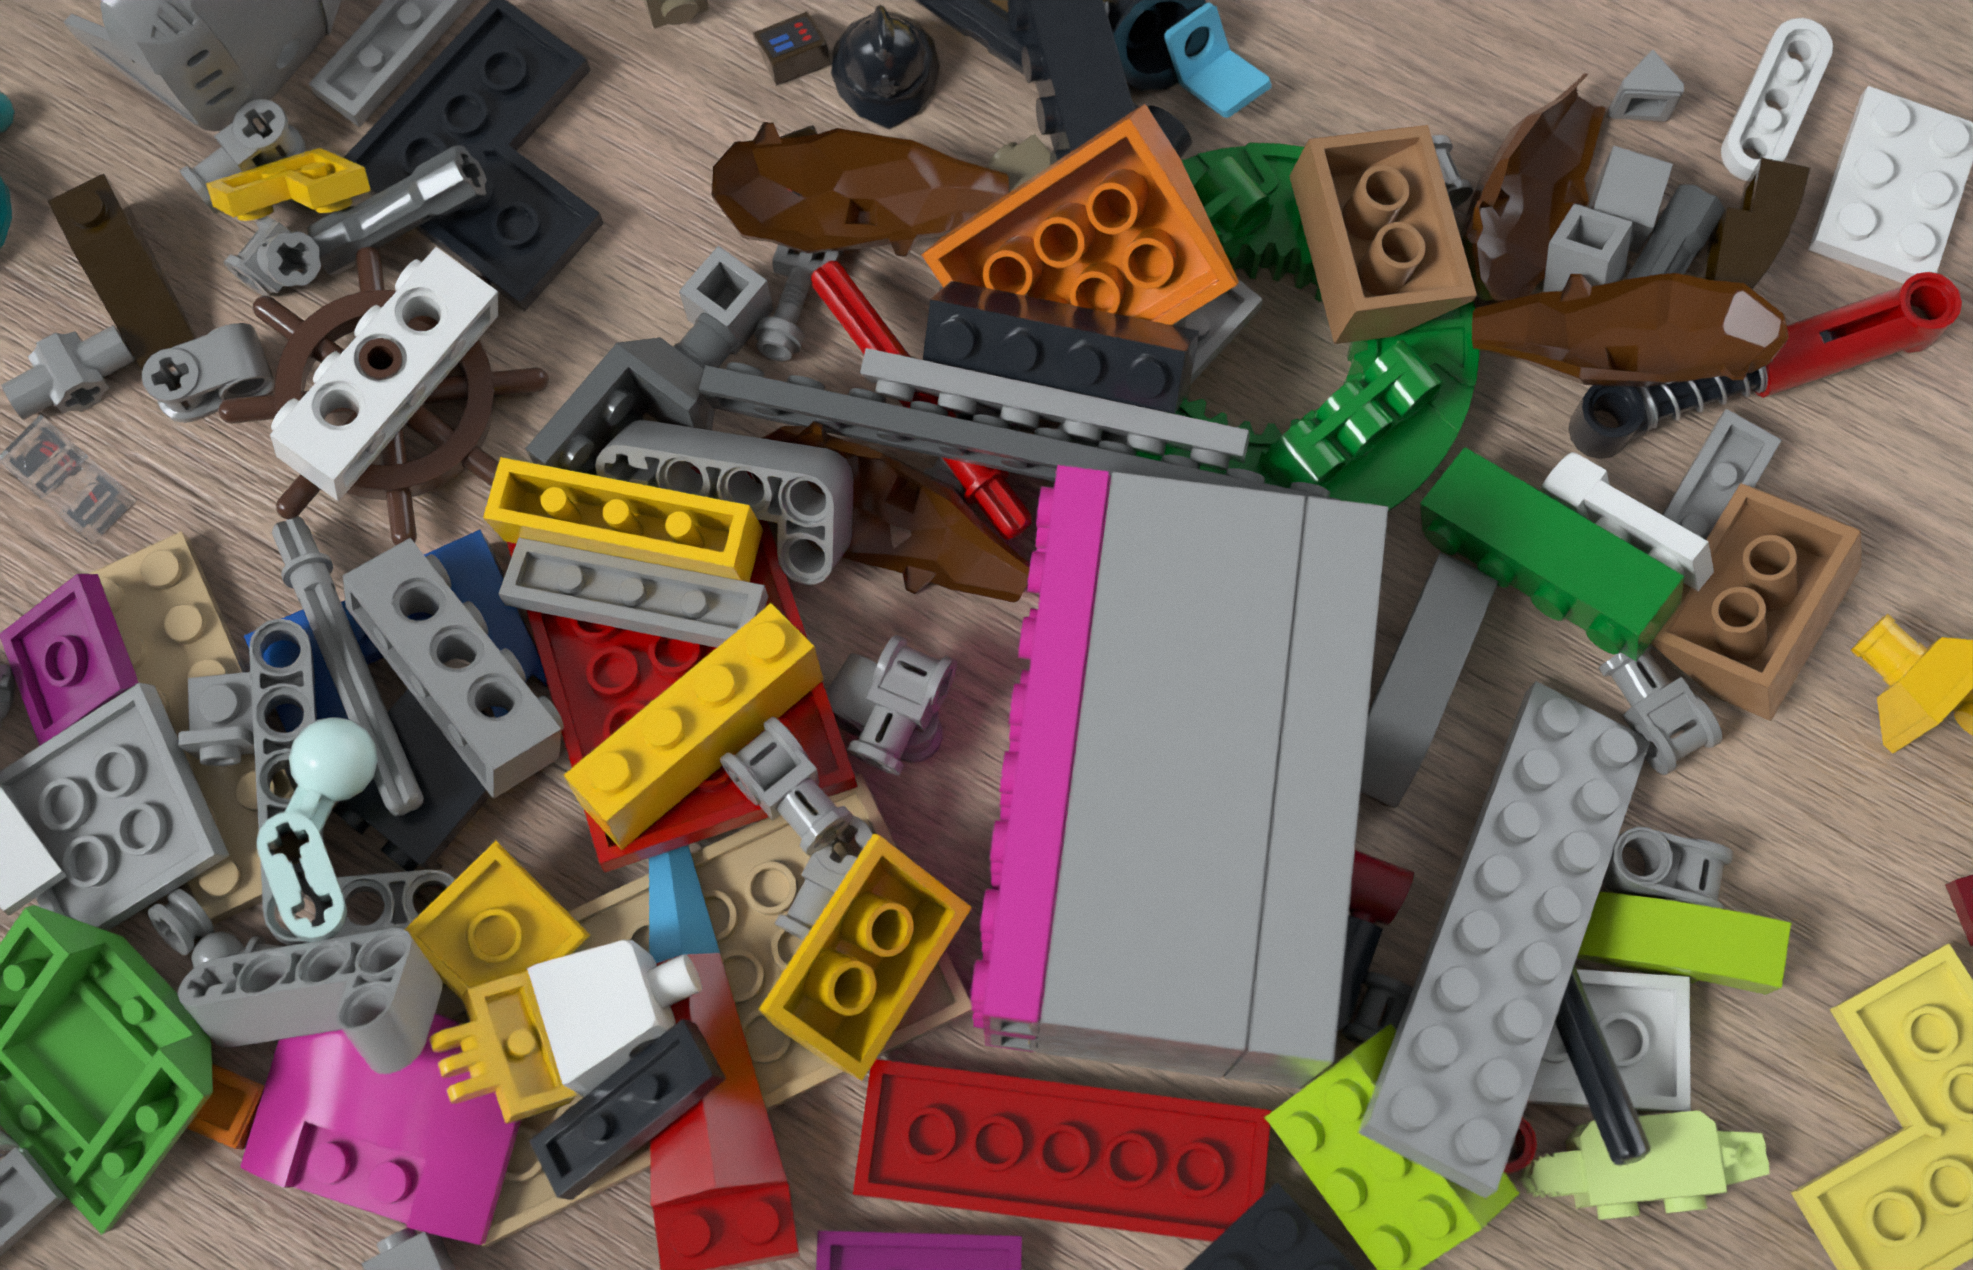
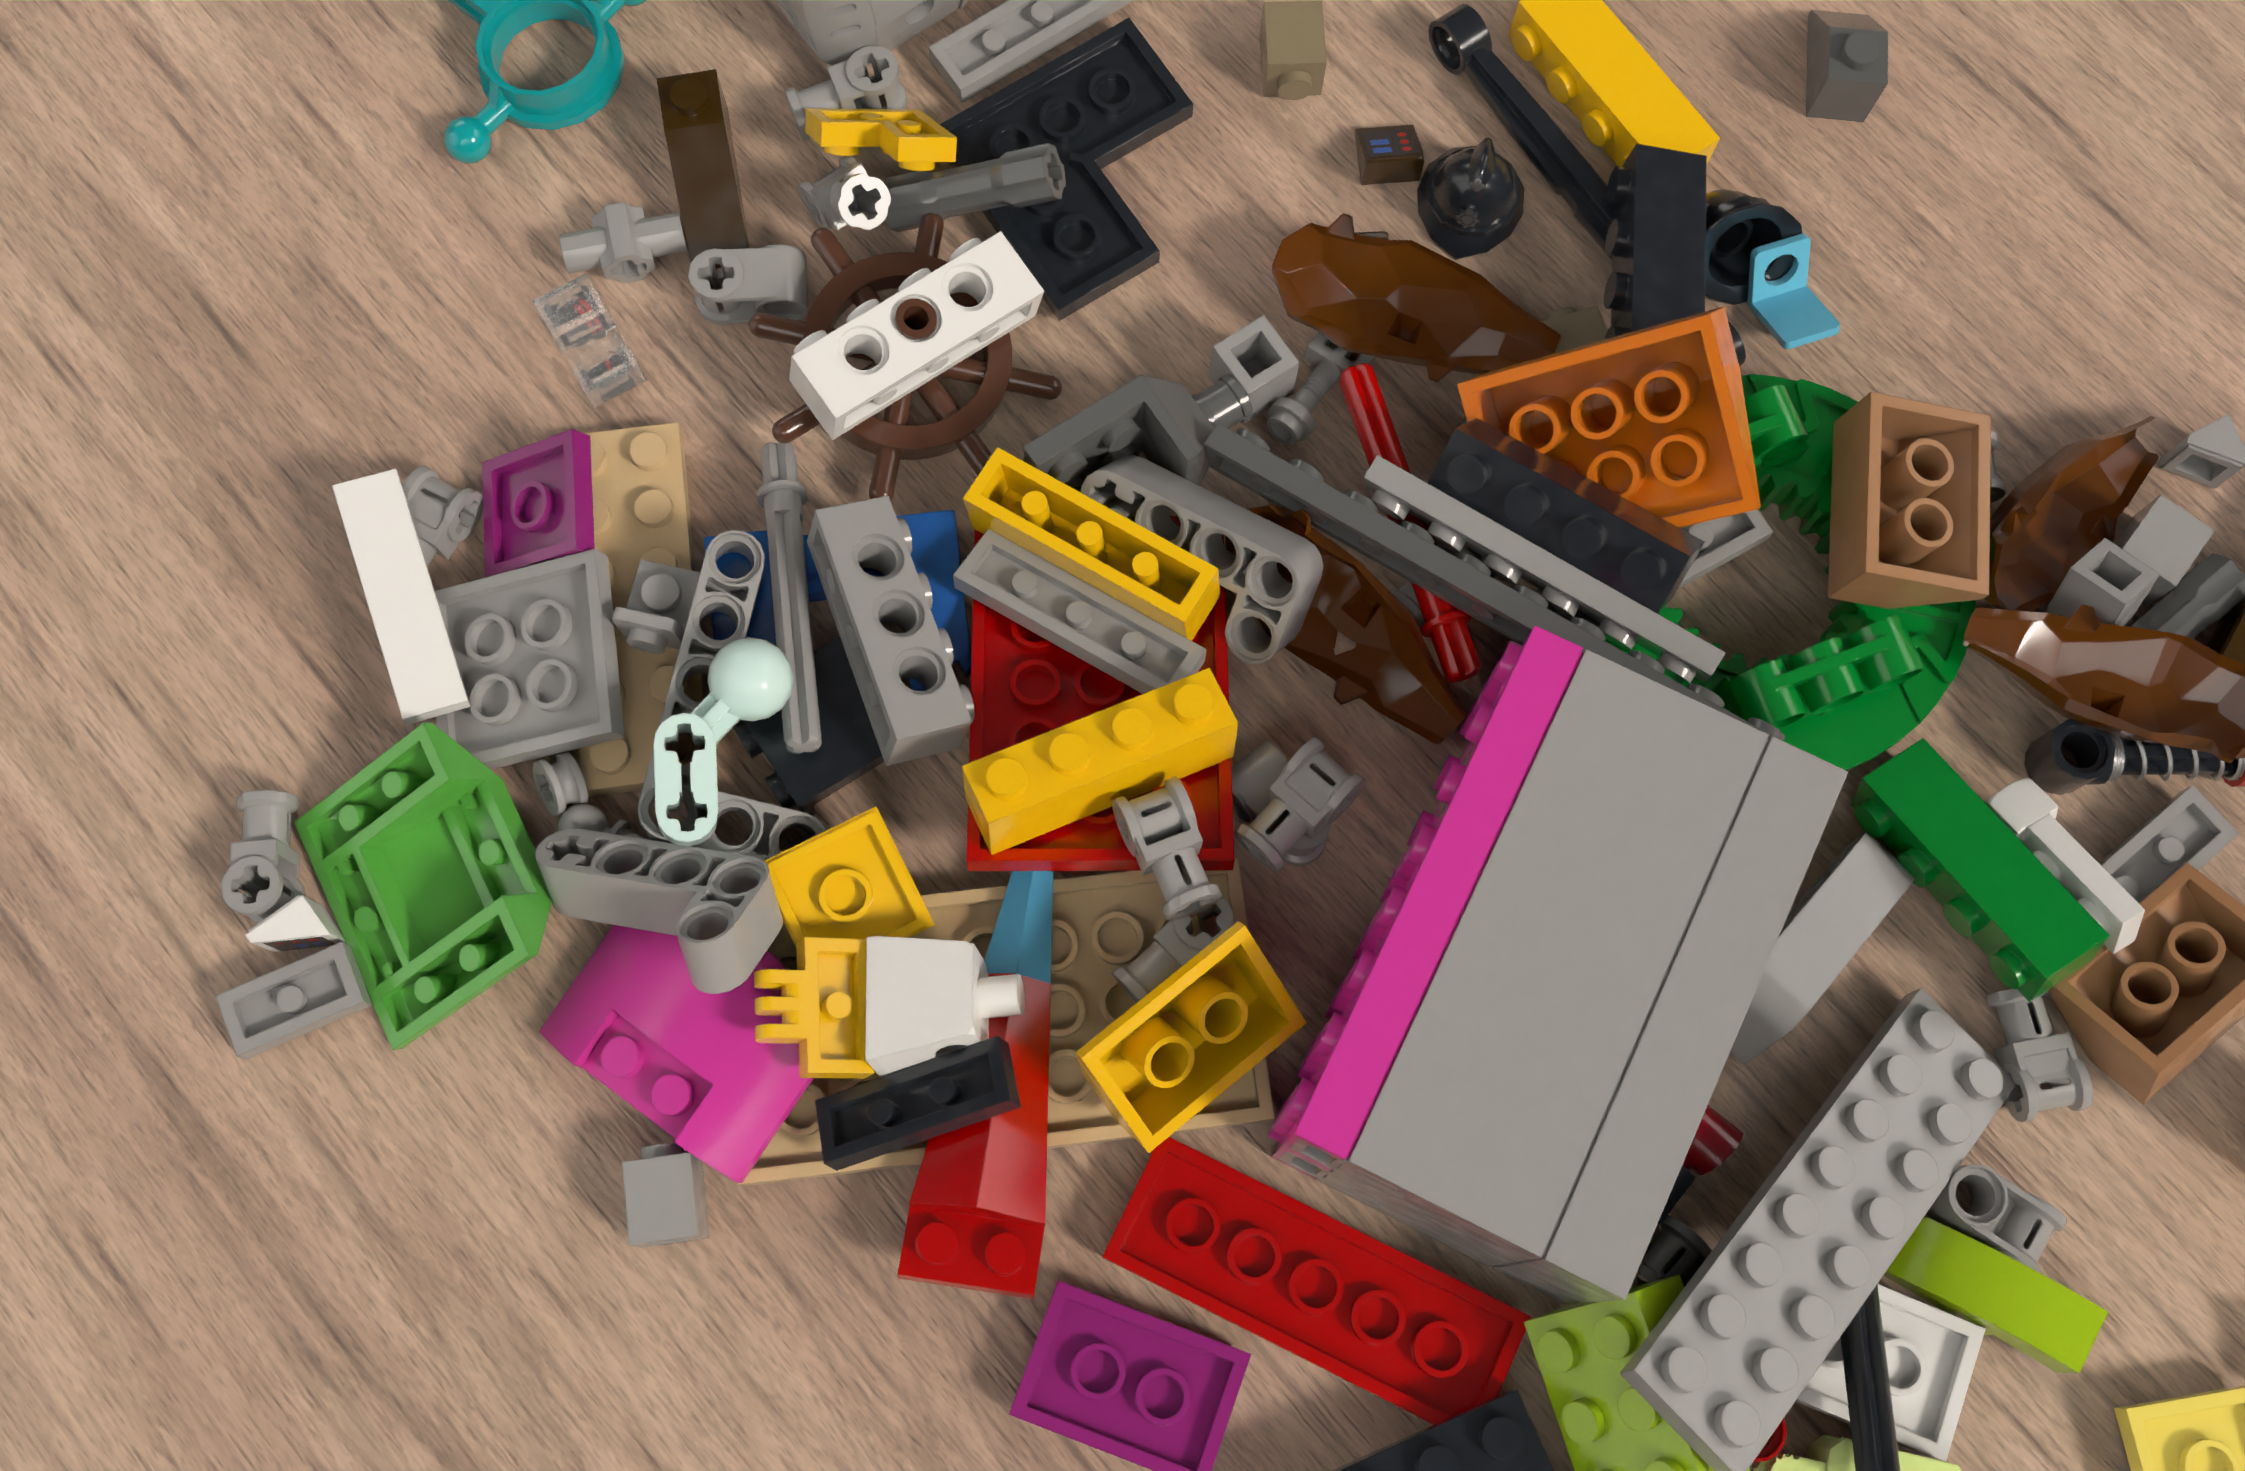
camera: 15 degrees right, 0 degrees up
(230, 1108) = (547, 974): orange tile -> none

